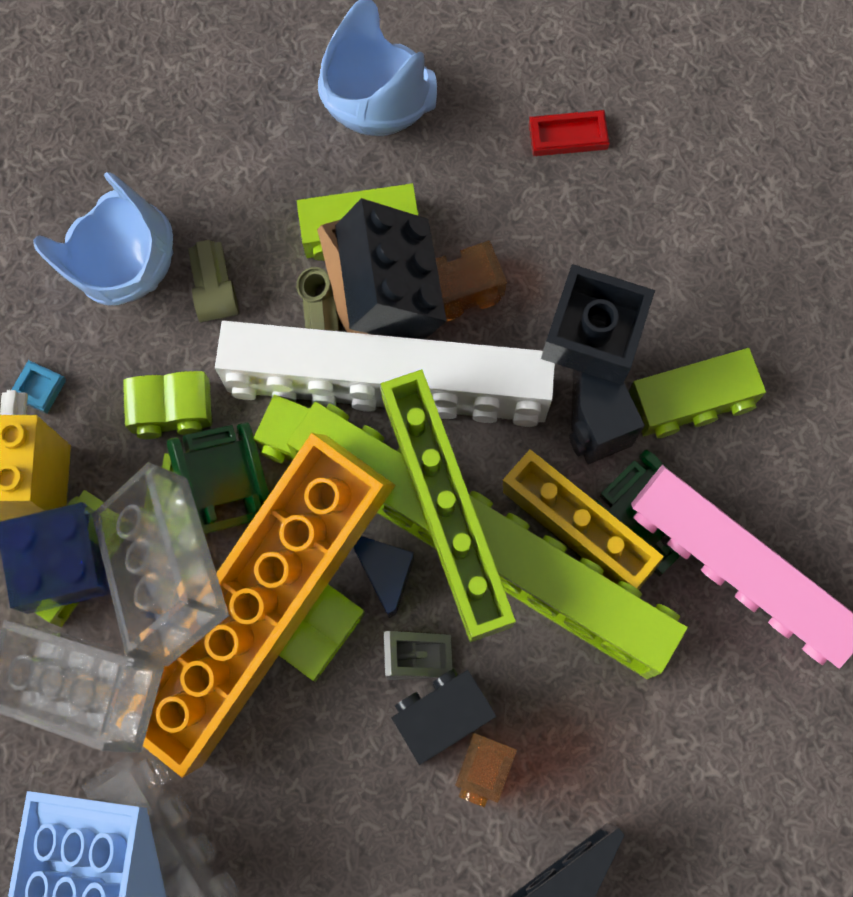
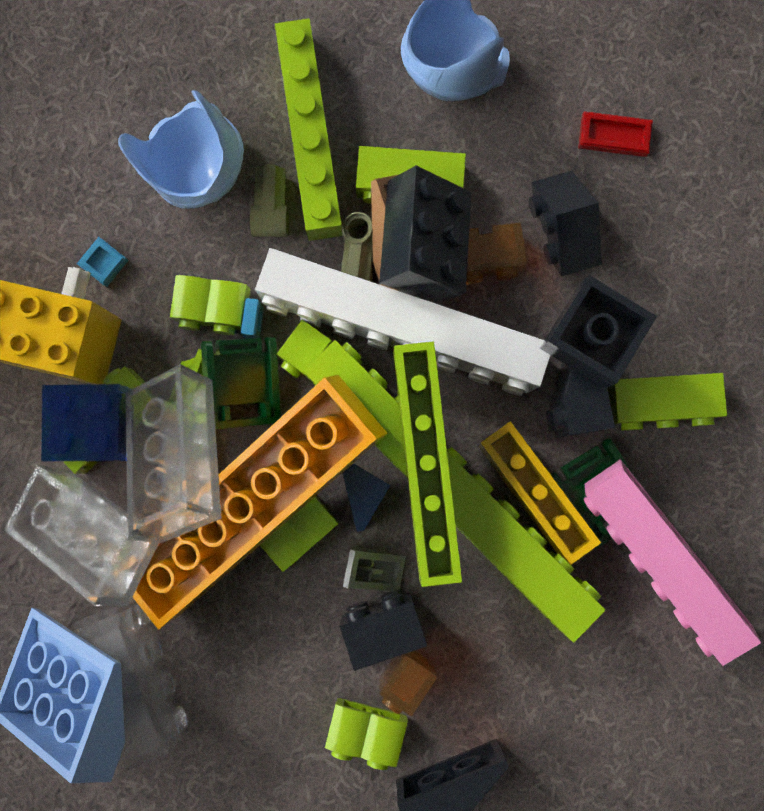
camera: 10 degrees right, 10 degrees up
(218, 406) = (252, 318): none -> dark azure tile
(239, 199) = (308, 129): none -> lime brick
(452, 851) = (366, 734): none -> lime brick
(542, 227) = (569, 220): none -> black brick

